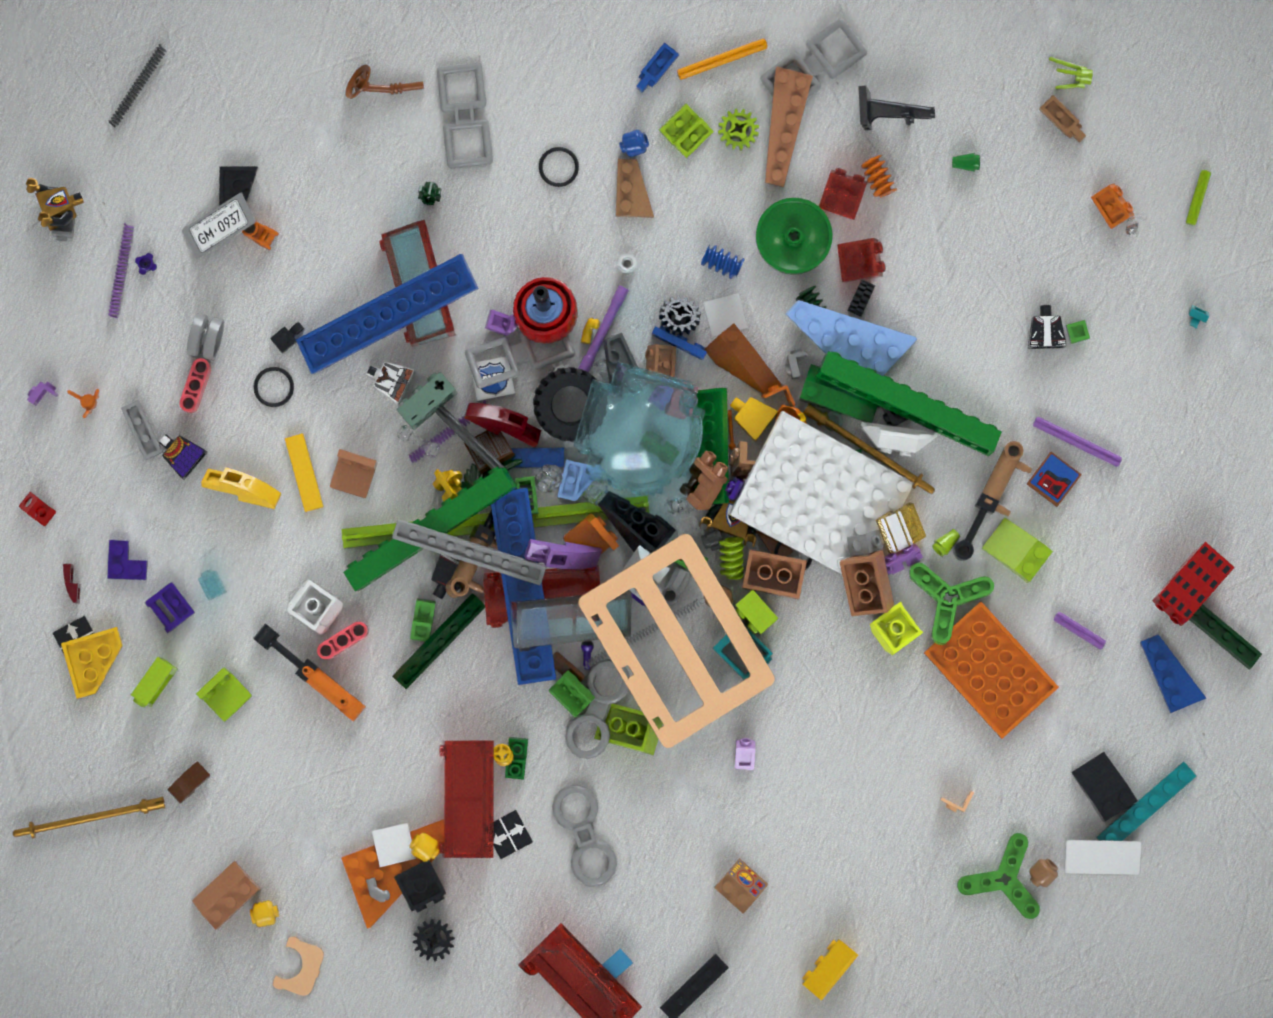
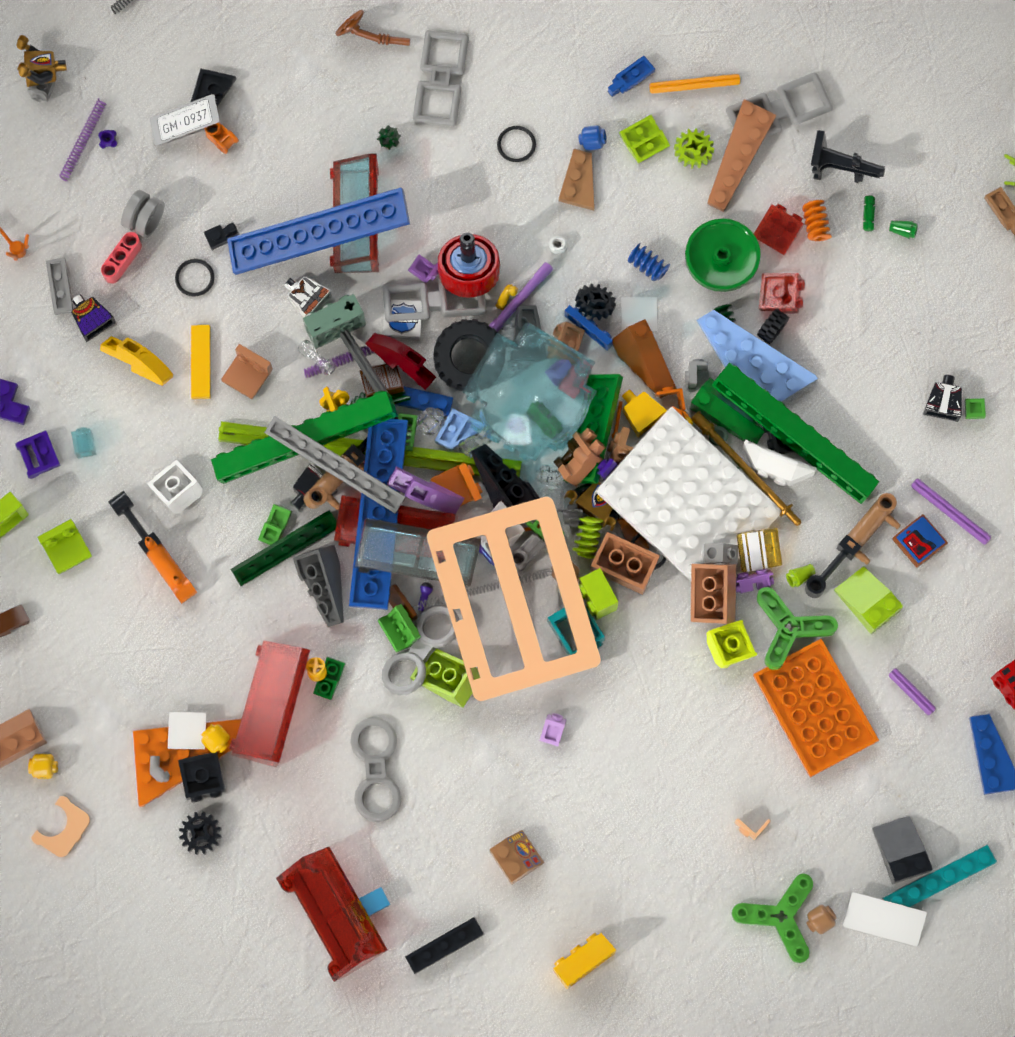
camera: 15 degrees right, 10 degrees down
(336, 649) = (183, 522): coral beam -> none
(483, 659) = (323, 577): none -> dark grey wedge
(510, 835) = (302, 750): black sticker -> none
(928, 154) = (869, 212): none -> green axle

